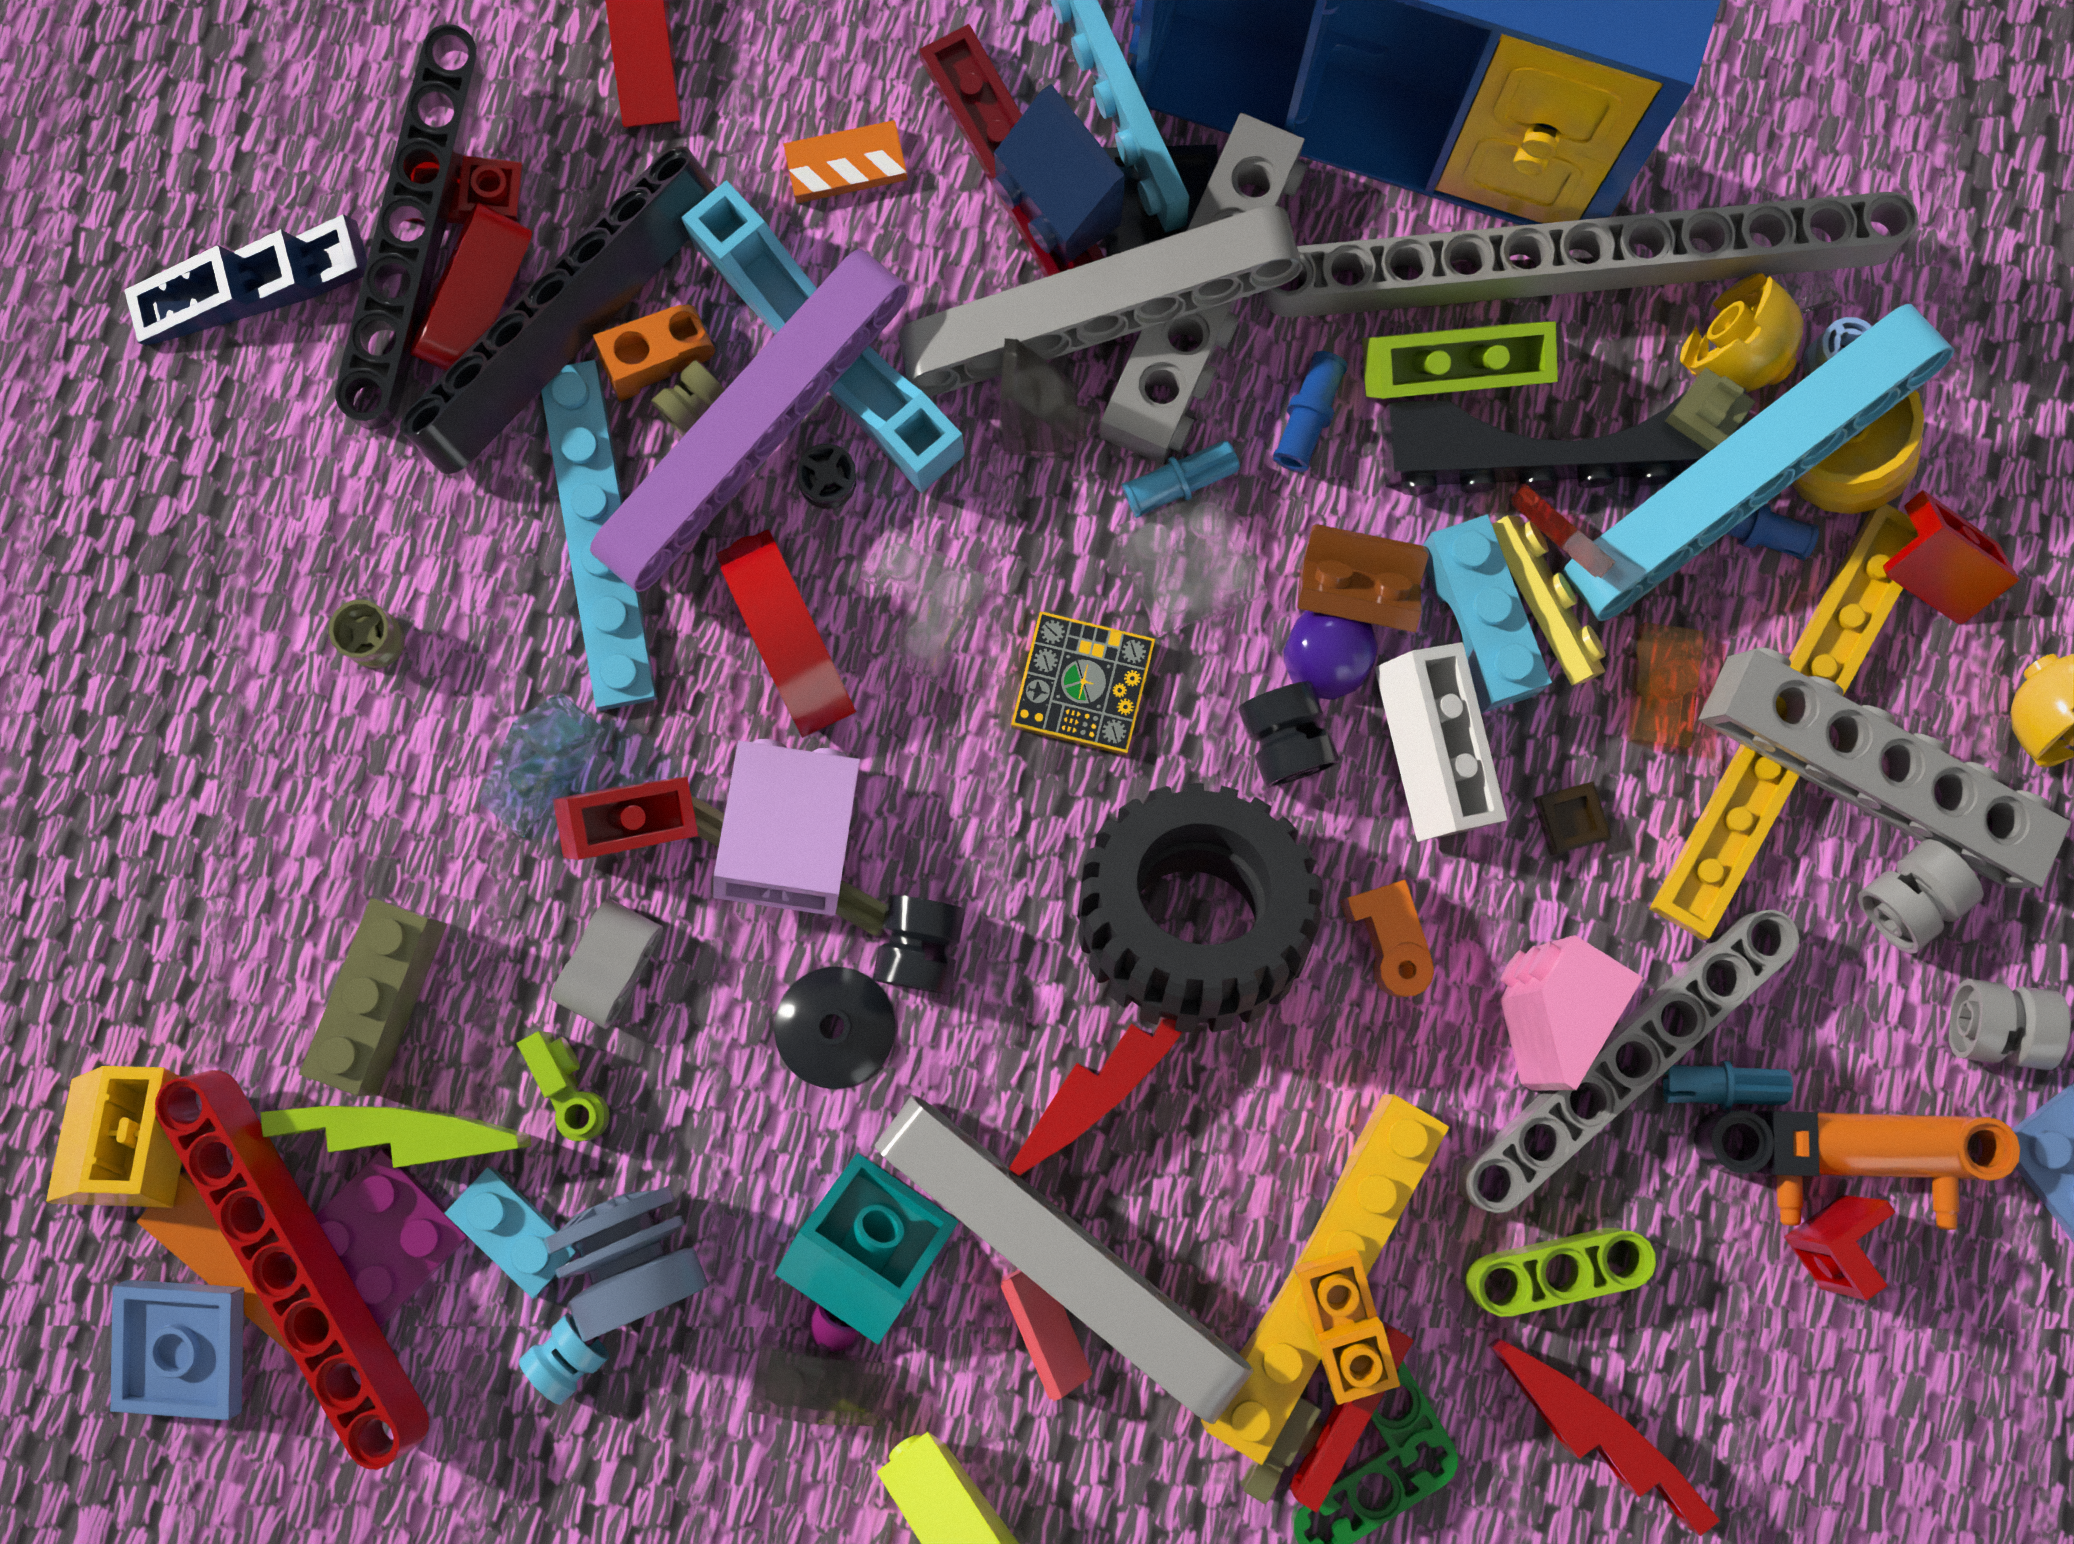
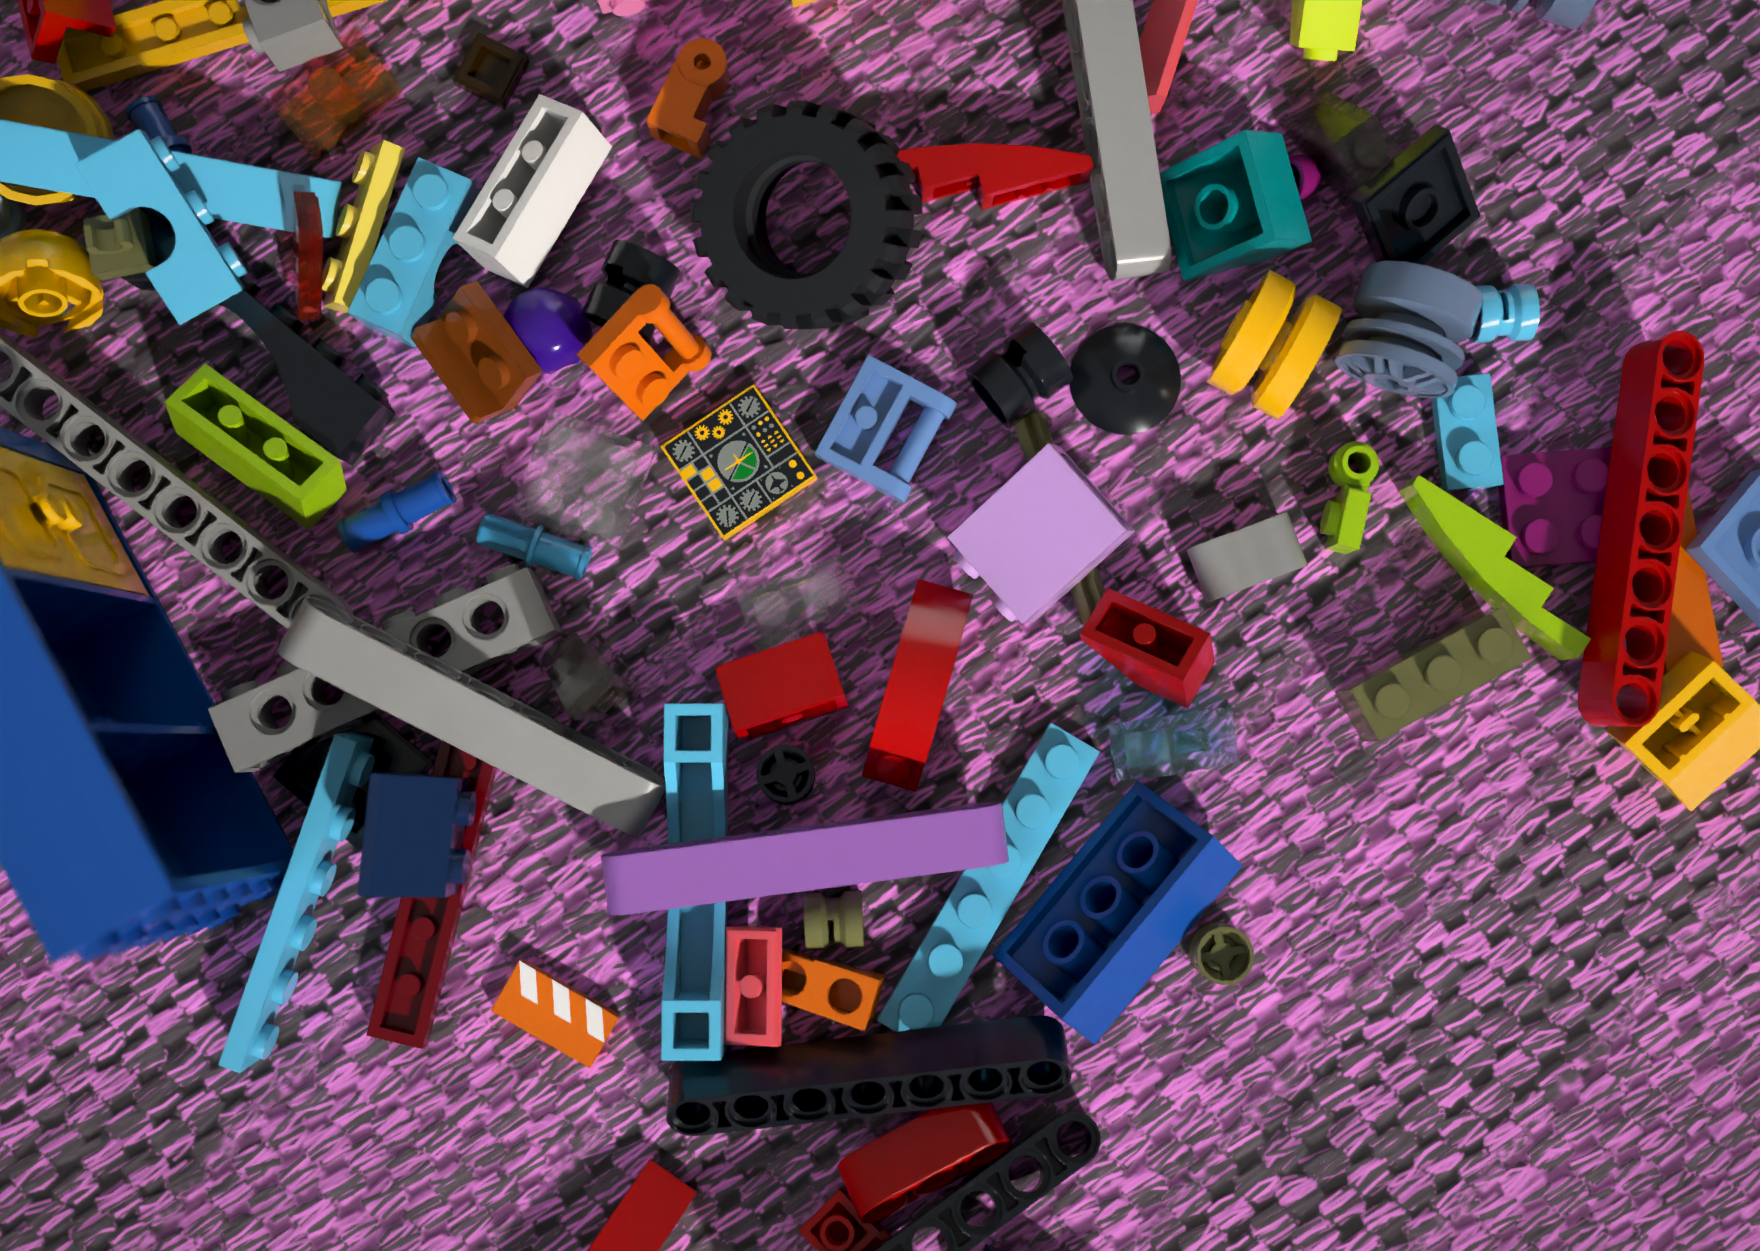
camera: 135 degrees left, 5 degrees up
(476, 595) = (1117, 911): none -> blue slope
(711, 300) = (753, 985): none -> coral slope
(711, 1382) = (1416, 201): none -> black tile
(727, 1149) = (1278, 347): none -> yellow wheel
(891, 536) = (781, 687): none -> red panel
(1009, 803) = (868, 420): none -> medium blue plate
(1226, 673) = (629, 363): none -> orange plate
(1732, 456) = (139, 174): none -> medium azure arch

